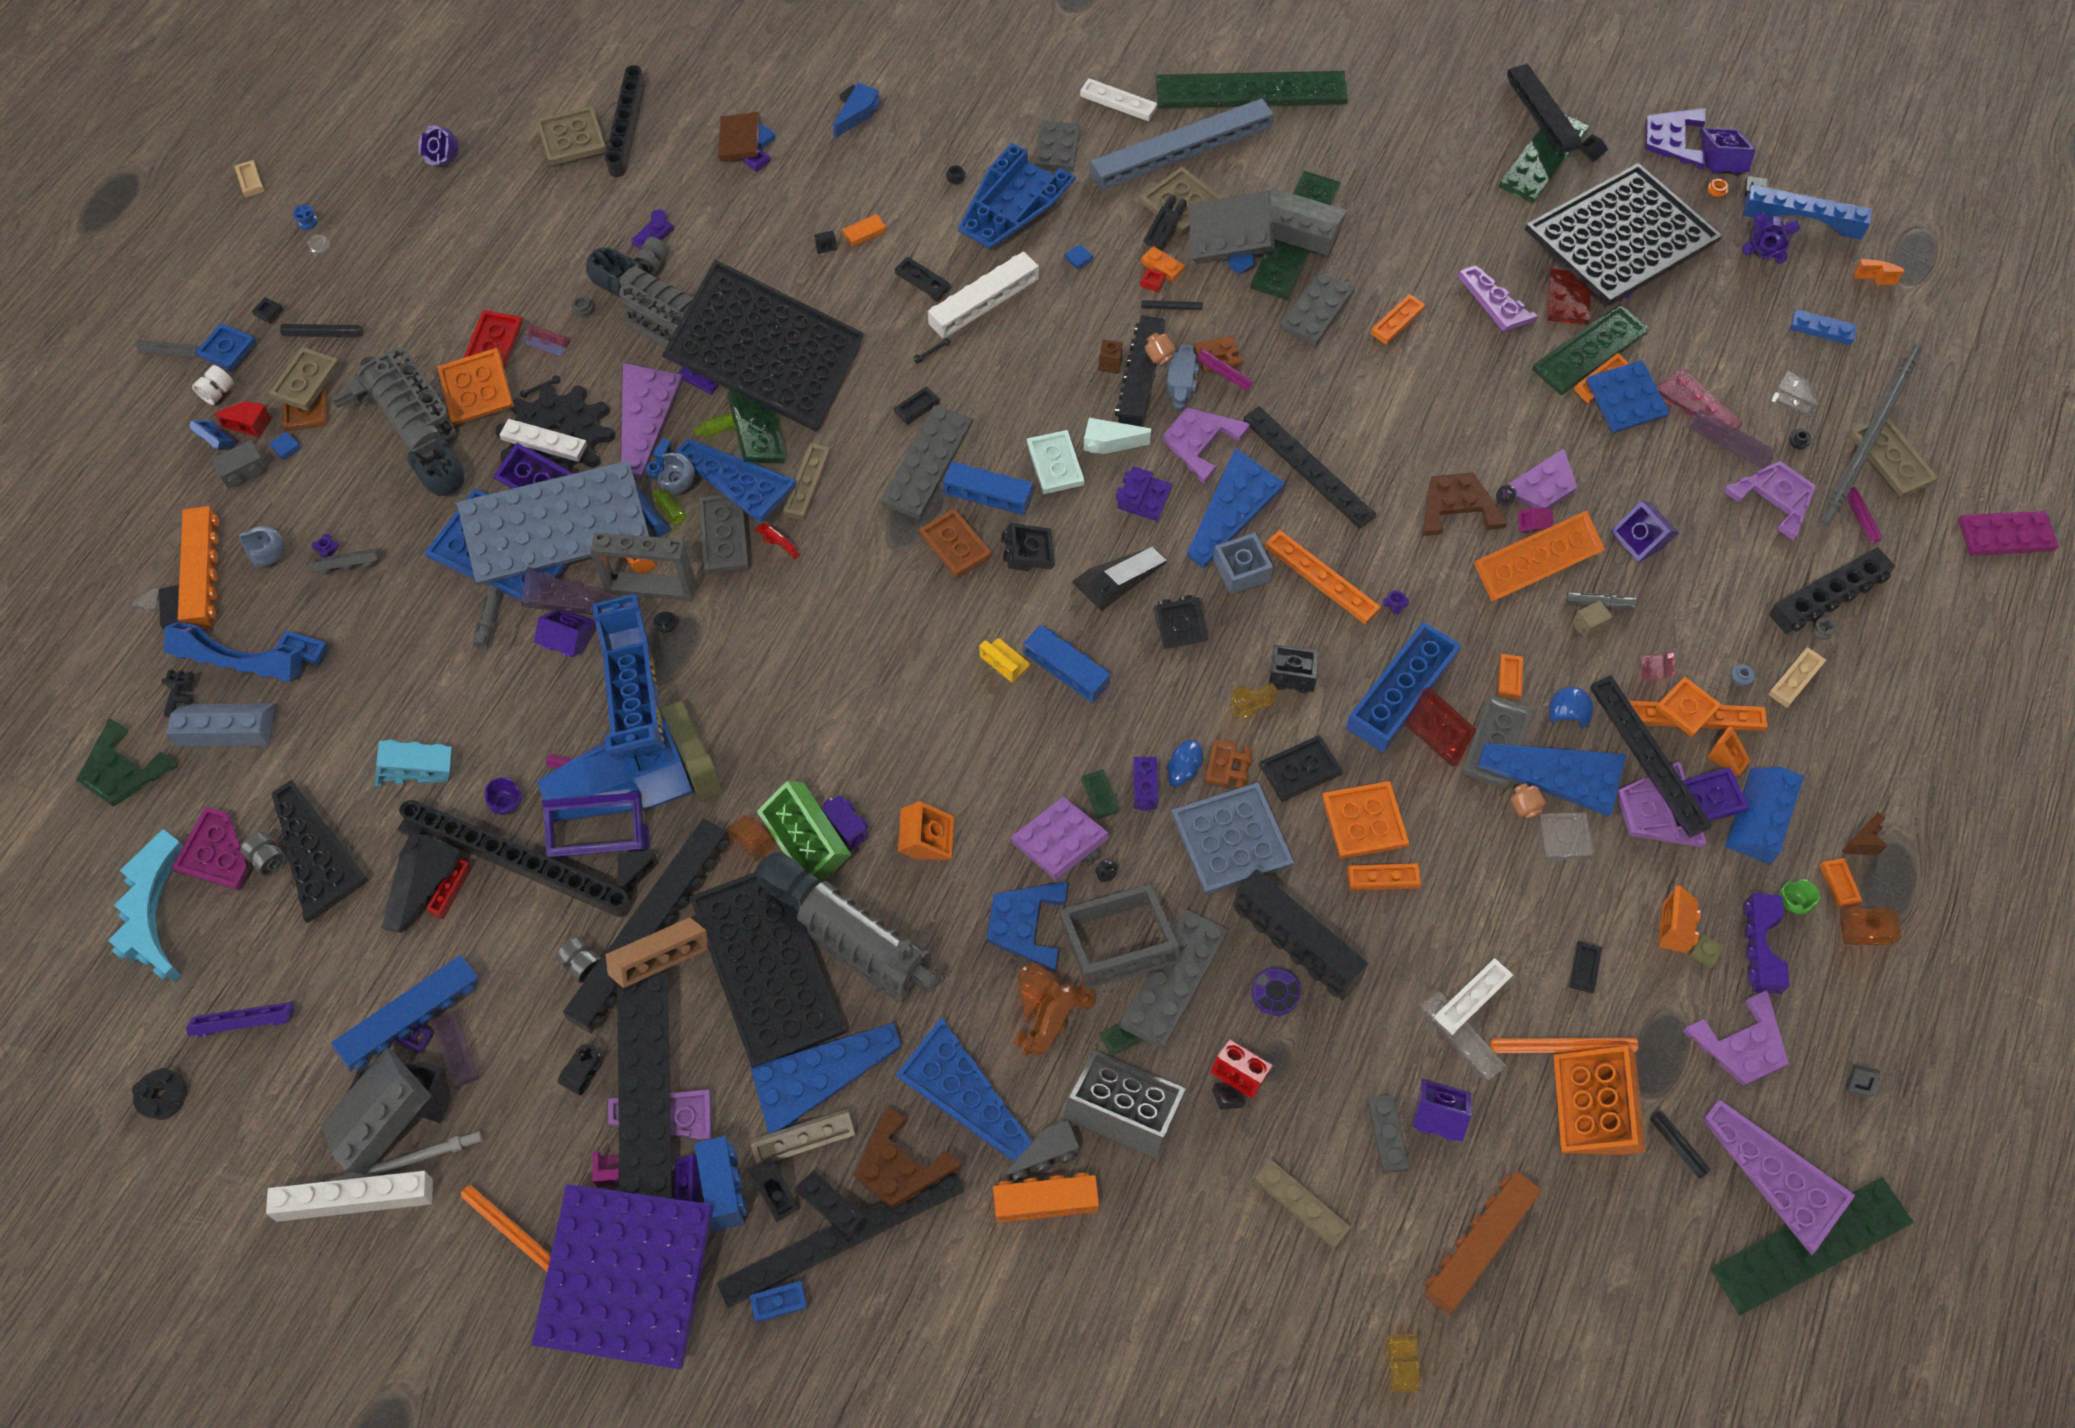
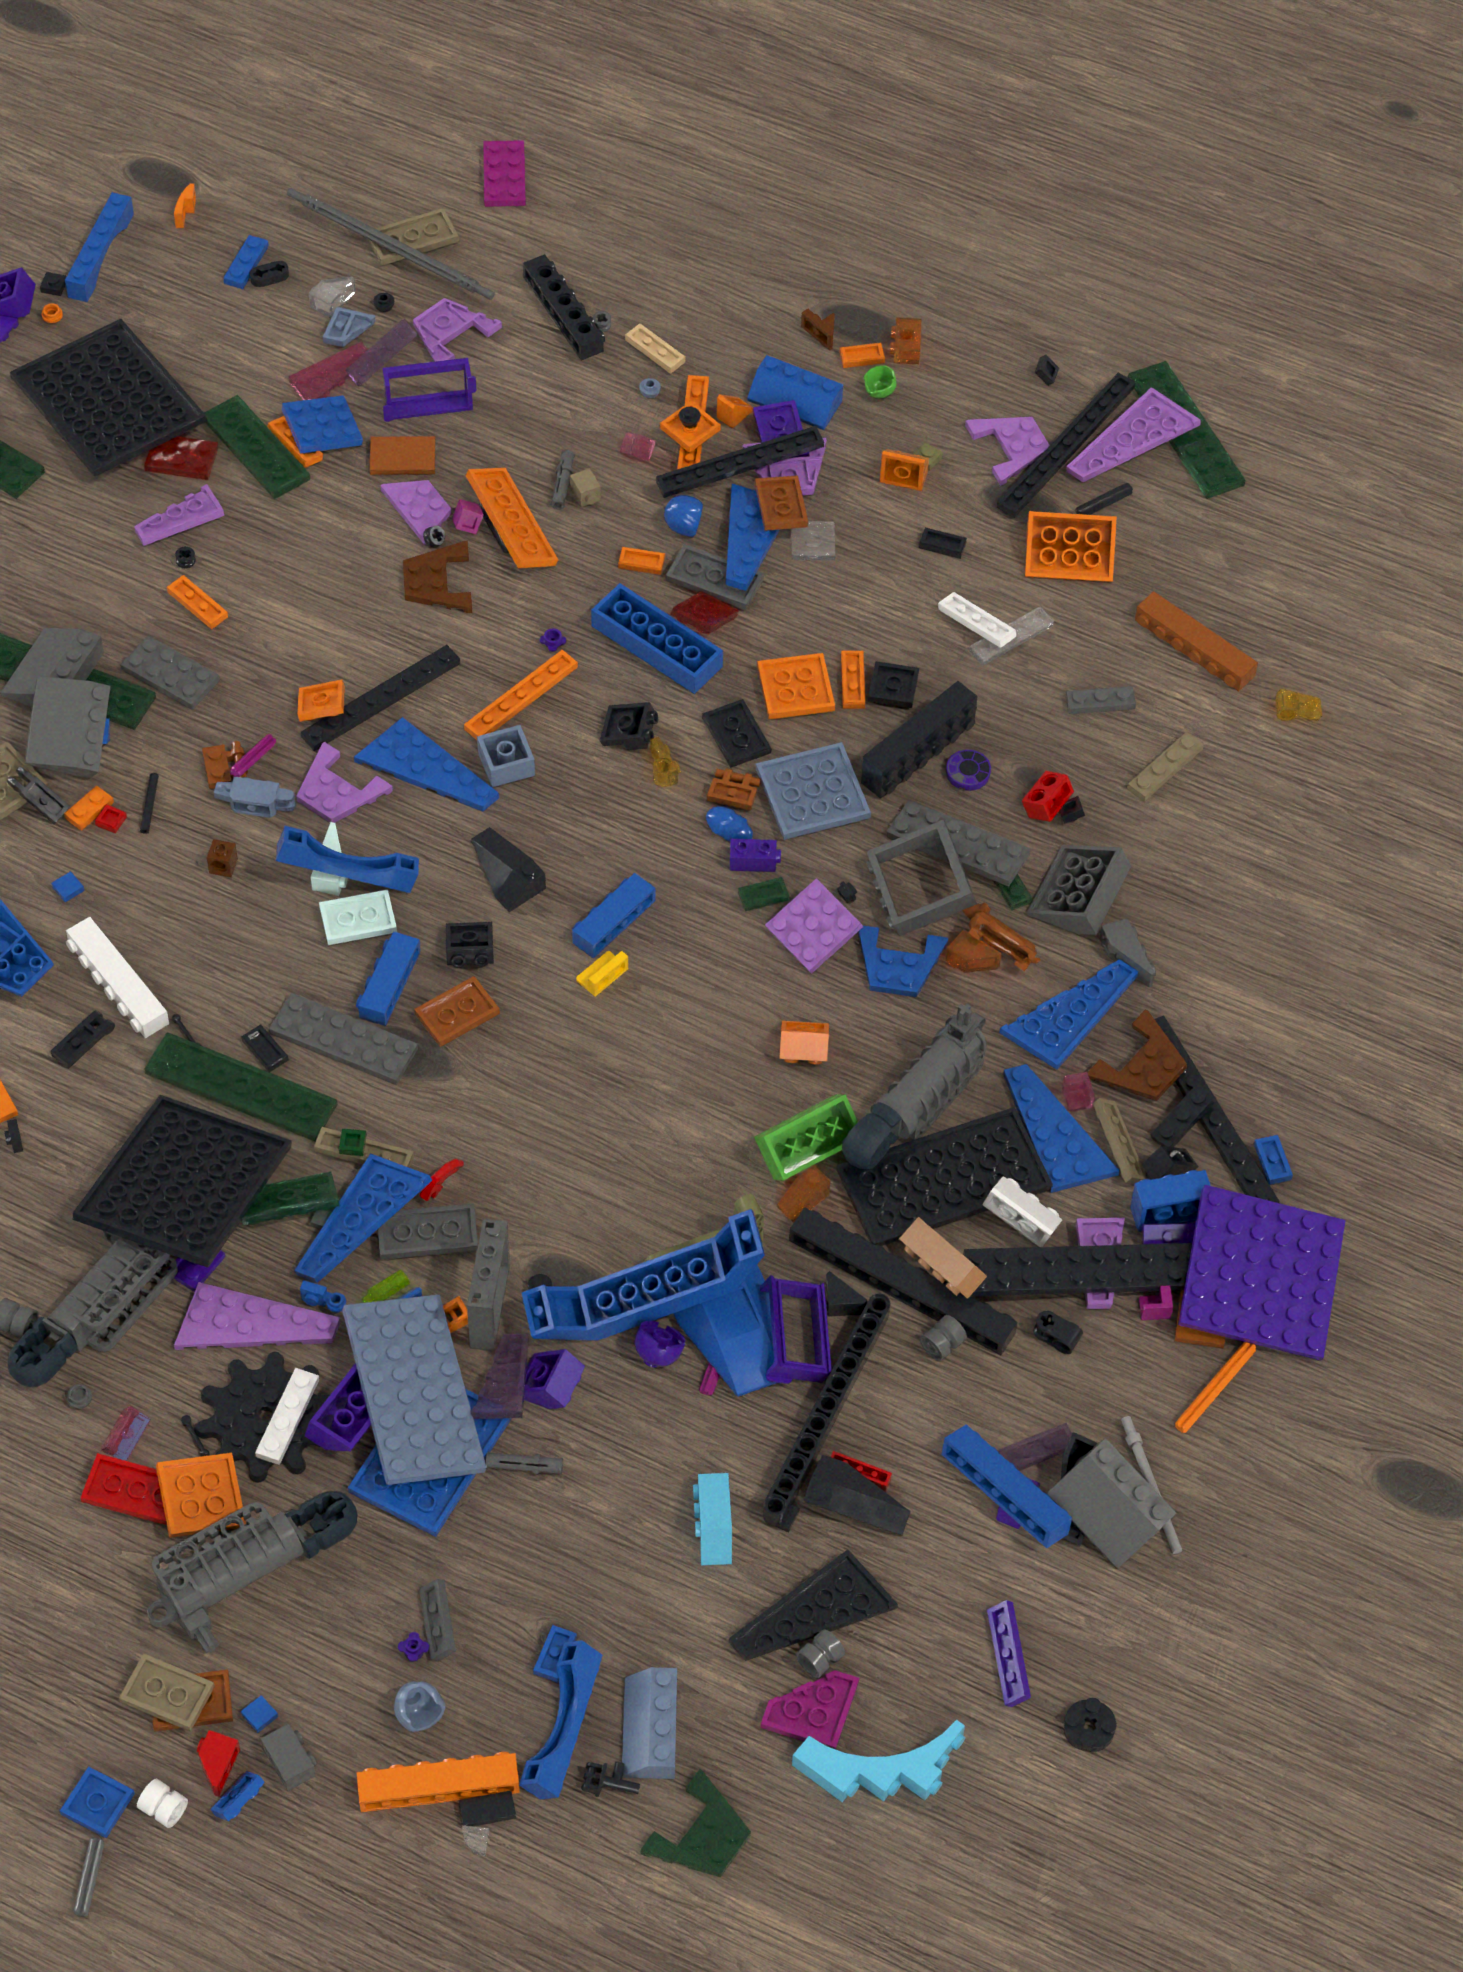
camera: 90 degrees left, 5 degrees down
(267, 310) = (41, 1760): black plate -> none
(321, 330) = (80, 1694): black axle -> none
(349, 1196) = (1192, 1524): white brick -> none
(502, 796) = (756, 1424): dark purple hair -> none
(588, 712) = (658, 1345): none -> dark purple cylinder
(676, 467) = (353, 1270): sand blue piece -> none
(709, 1031) = (1022, 1211): none -> white slope
(715, 425) = (275, 1244): clear neon green cylinder -> none
(807, 466) = (352, 1142): none -> dark green plate
(845, 822) = (788, 1106): dark purple brick -> none
(865, 1097) = (1078, 1091): none -> clear pink panel
(873, 390) = (241, 1086): none -> clear green plate
(1045, 1198) = (1171, 951): orange brick -> none
(1099, 465) = (389, 871): none -> blue arch
(1140, 376) = (247, 831): black brick -> none
(1143, 494) = (406, 838): dark purple plate -> none
(1160, 348) = (231, 802): nougat head -> none
(1180, 622) = (569, 815): black plate -> none
(1292, 415) = (321, 700): none -> orange plate
(1378, 915) = (893, 684): none -> black plate
(1442, 1111) = (1080, 655): dark purple slope -> none
(1450, 302) = (184, 562): none -> black bush
(1528, 801) = (780, 560): nougat head -> none
(1558, 1045) = (1017, 568): orange axle -> none
(1598, 794) = (781, 502): none -> dark orange plate
(1606, 466) = (402, 455): none -> dark orange tile
(1644, 531) = (486, 434): dark purple slope -> none
(1686, 503) = (429, 403): none -> dark purple piece
(1695, 700) = (689, 416): none -> black plate
(1757, 1103) = (1066, 445): none -> black plate
(1758, 409) = (346, 326): none -> sand blue wing
(1766, 970) = (945, 417): dark purple arch -> none
(1770, 237) = (134, 277): dark purple piece -> none
(1810, 343) = (269, 273): none -> black beam
(1864, 516) = (484, 269): magenta axle -> none

